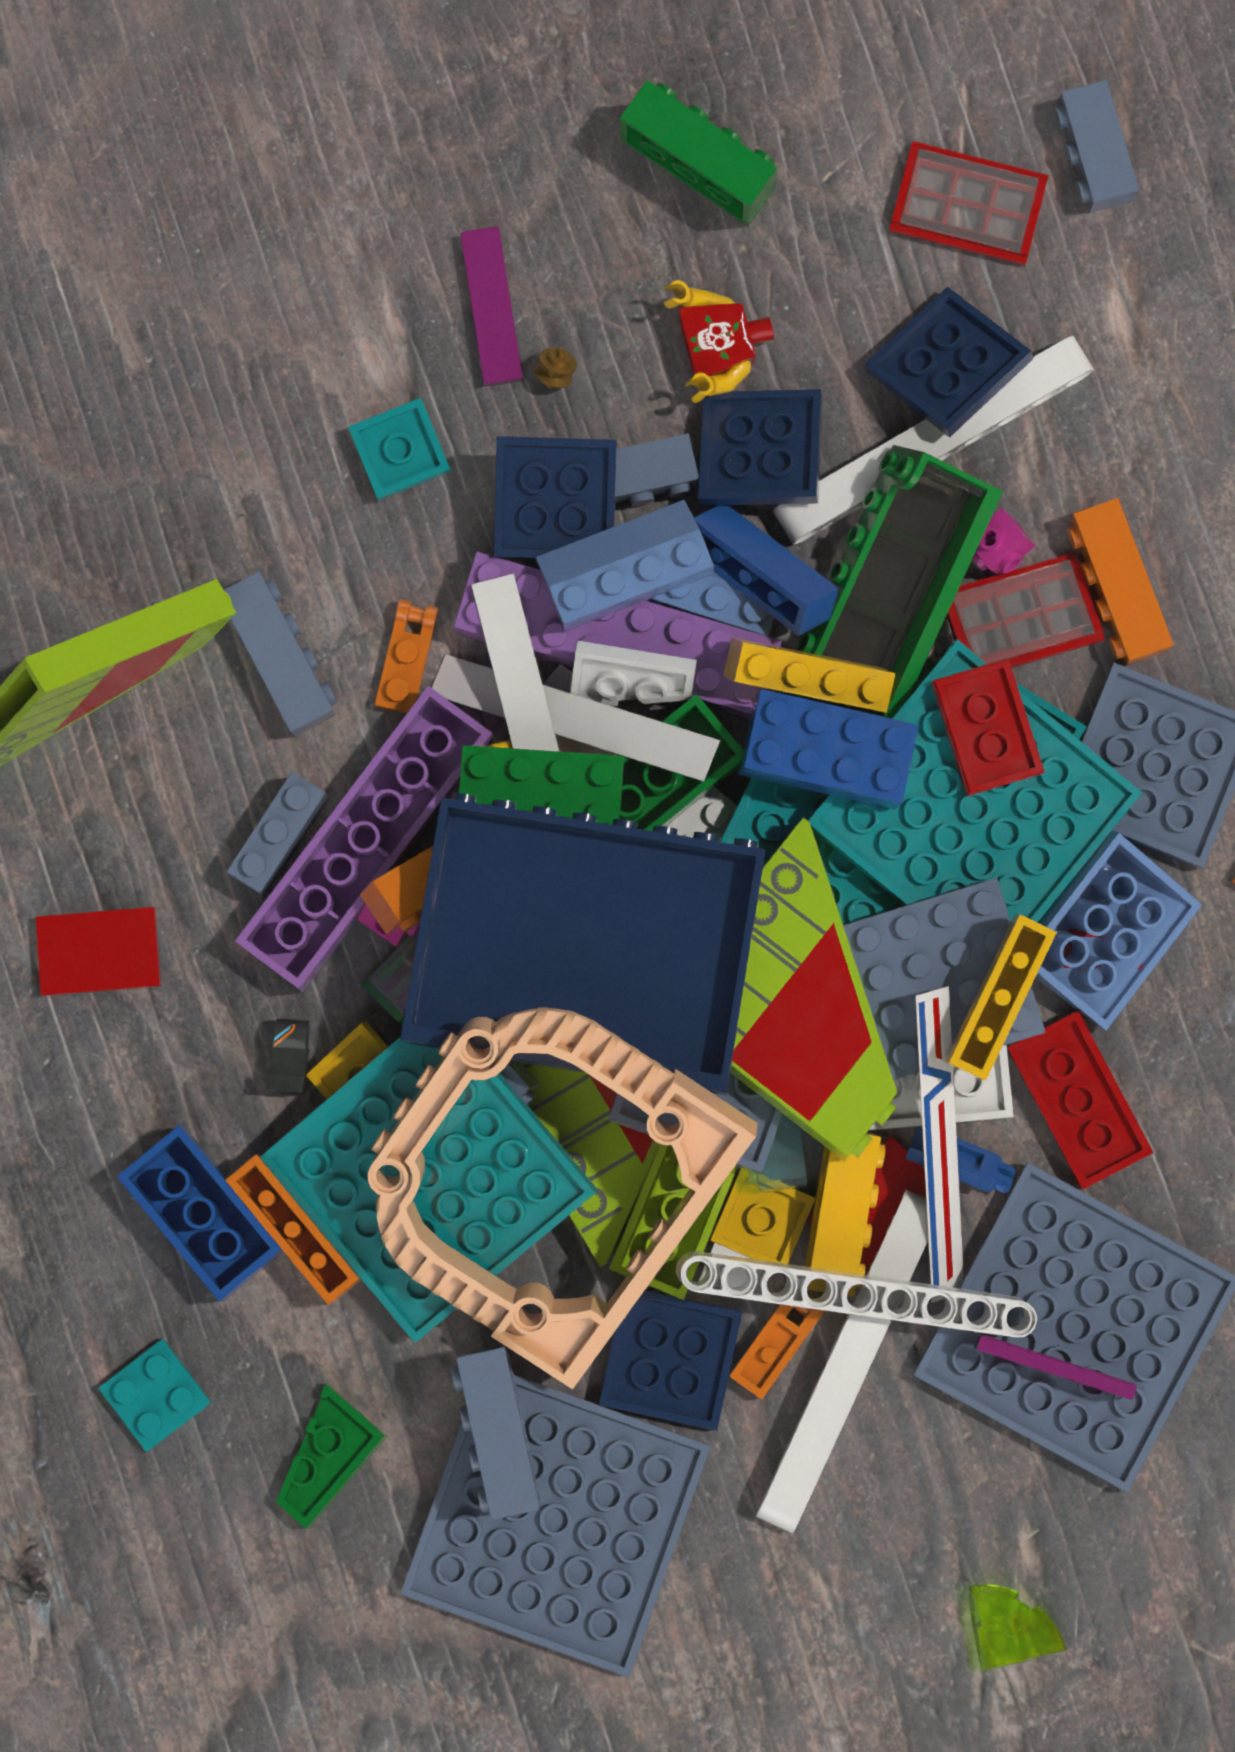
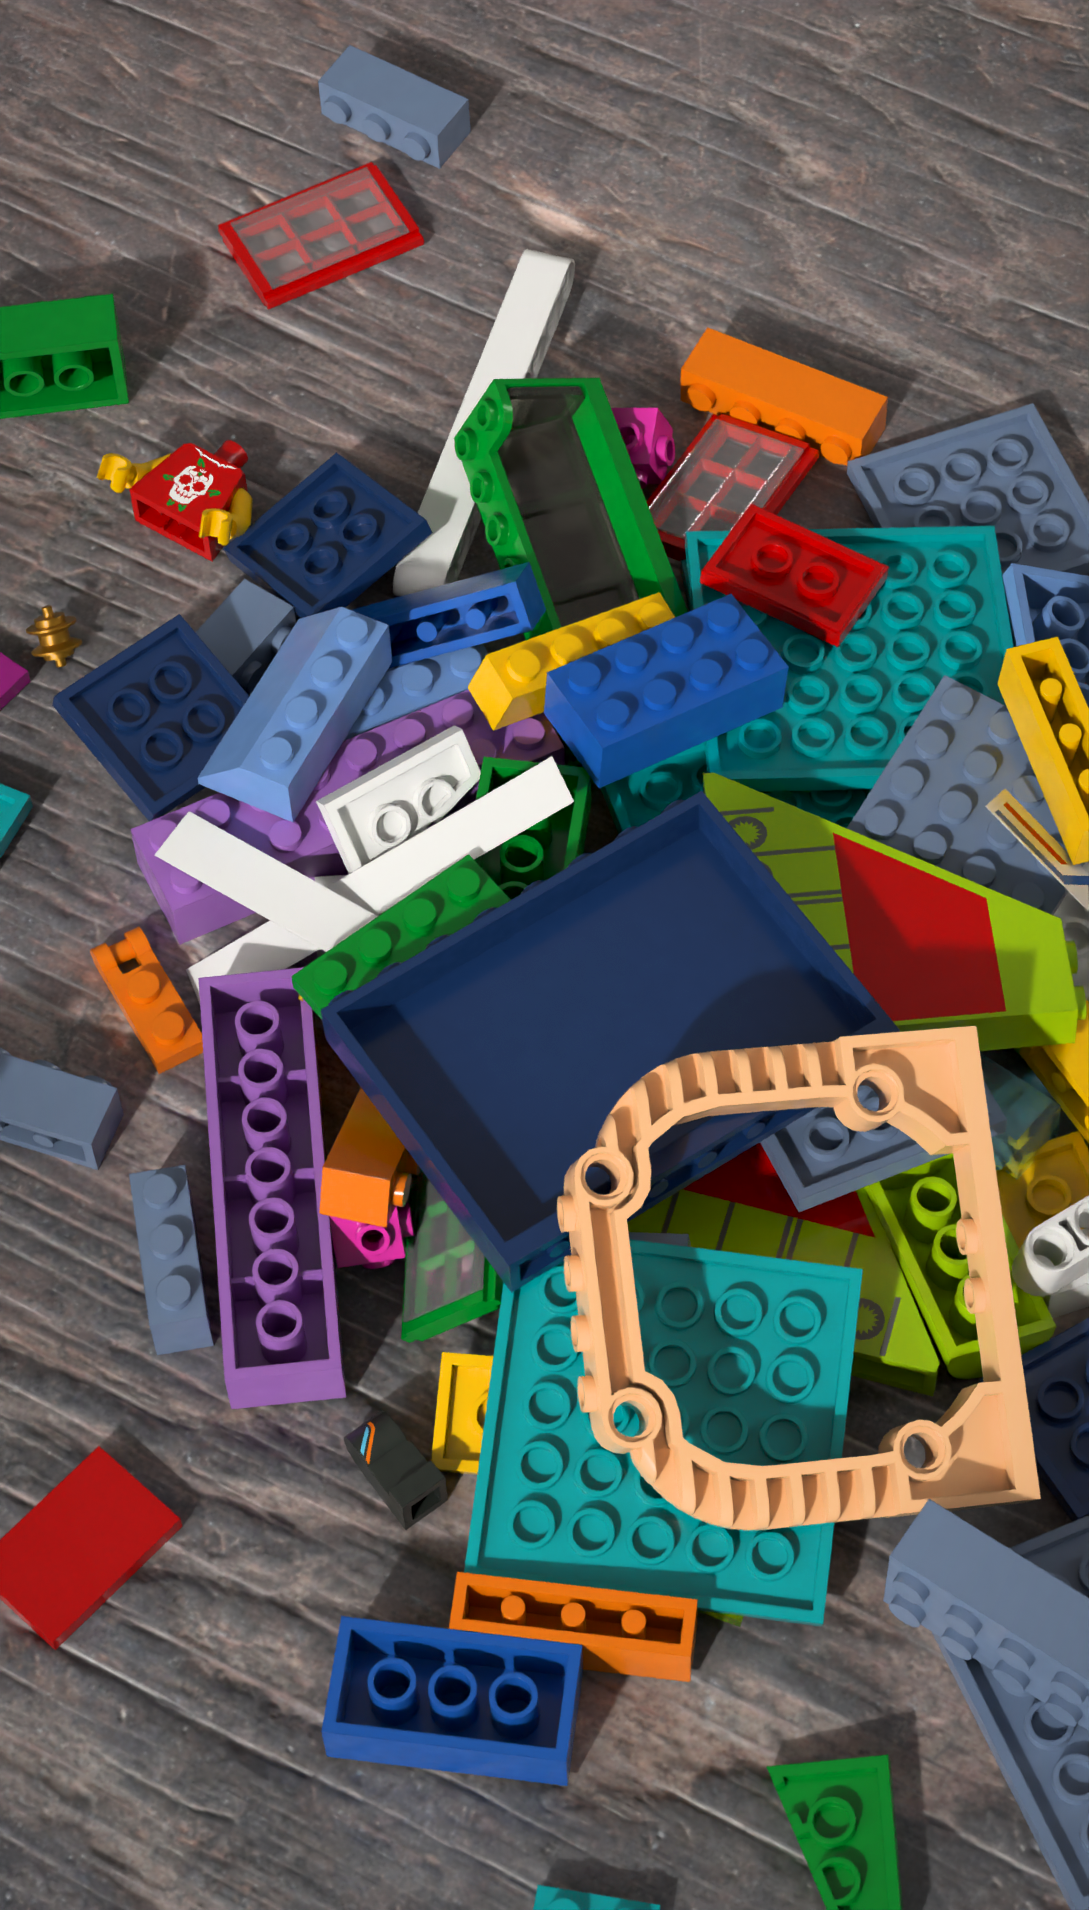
camera: 45 degrees left, 25 degrees down
(948, 361) = (434, 344): dark blue plate -> none

